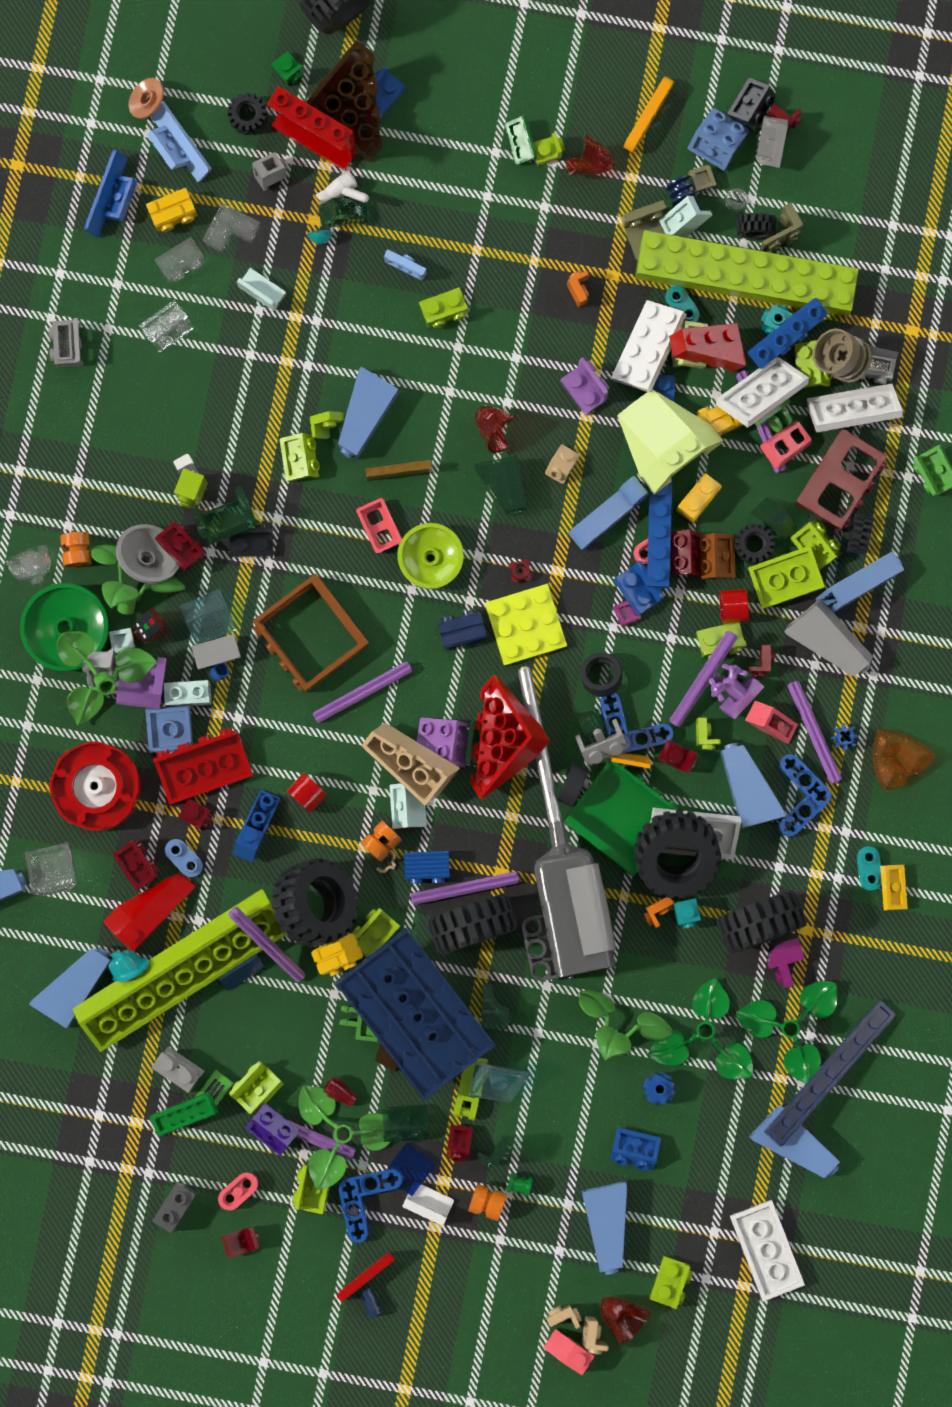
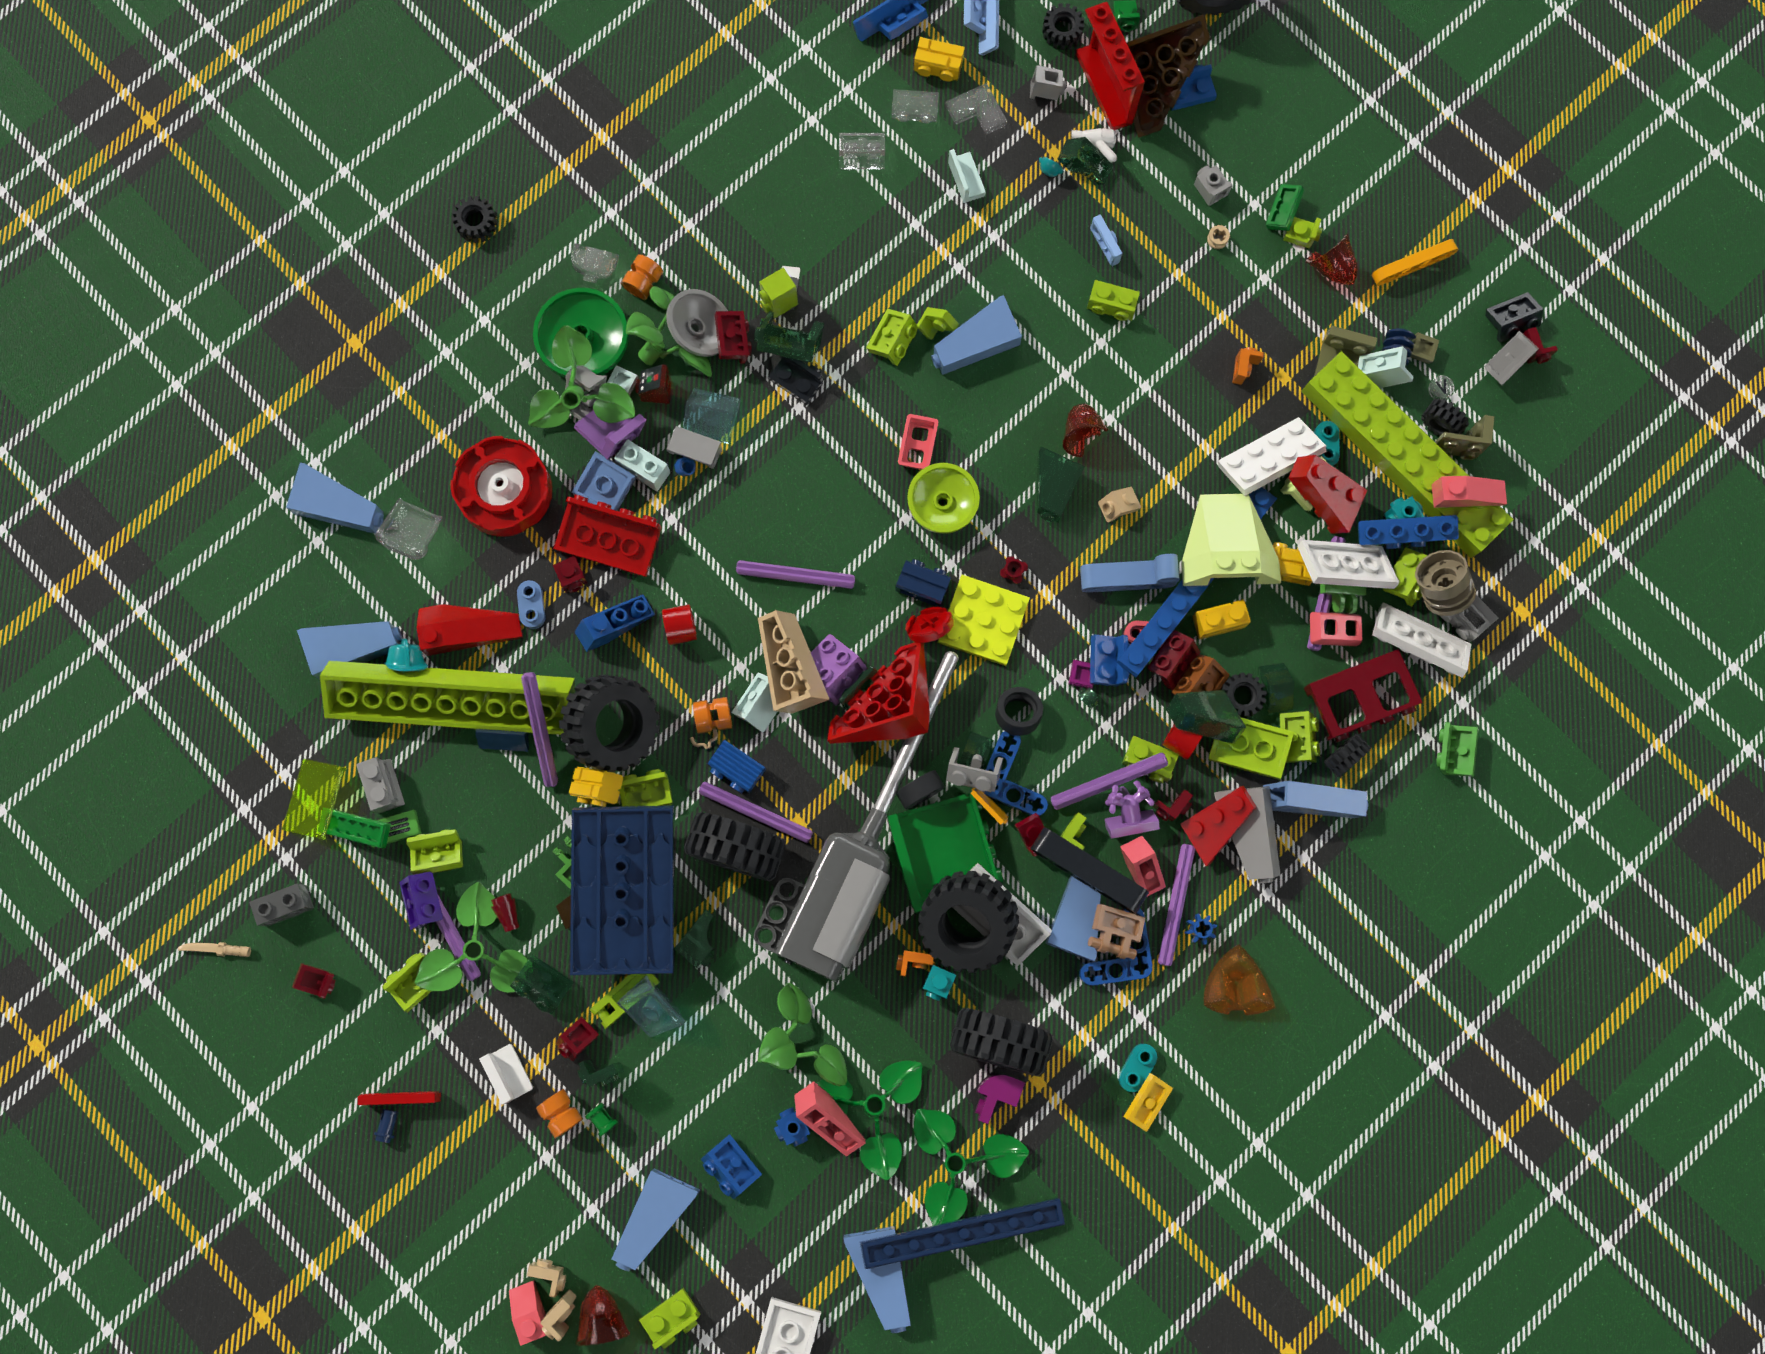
camera: 35 degrees right, 5 degrees down
(66, 343) = (765, 104): light grey window -> none
(136, 865) = (484, 579): dark red bracket -> none
(136, 1116) = (313, 799): none -> clear neon green piece
(154, 1270) = (220, 949): none -> tan piece
(238, 1190) = (349, 933): coral plate -> none
(274, 648) = (786, 448): dark orange window -> none
(359, 1191) = (455, 1015): blue beam -> none
(398, 470) = (970, 407): pearl gold tile -> none
(413, 1166) = (514, 1029): clear blue piece -> none
(454, 168) = (1211, 190): none -> light grey brick
(484, 193) = (1216, 243): none -> tan bush
(490, 658) = (930, 625): none -> red tile
(586, 387) = (1190, 452): medium lavender bracket -> none
(644, 627) = (1088, 697): none -> clear green plate
(678, 1065) = (826, 1118): none -> coral slope
(718, 138) = (1461, 324): medium blue bracket -> none
(736, 754) = (1089, 870): none -> black beam
(739, 579) = (1206, 715): none -> clear green slope
(783, 777) = (1116, 923): none -> medium nougat plate
(802, 652) = (1218, 822): none -> red wing
(812, 273) = (1468, 492): none -> coral slope

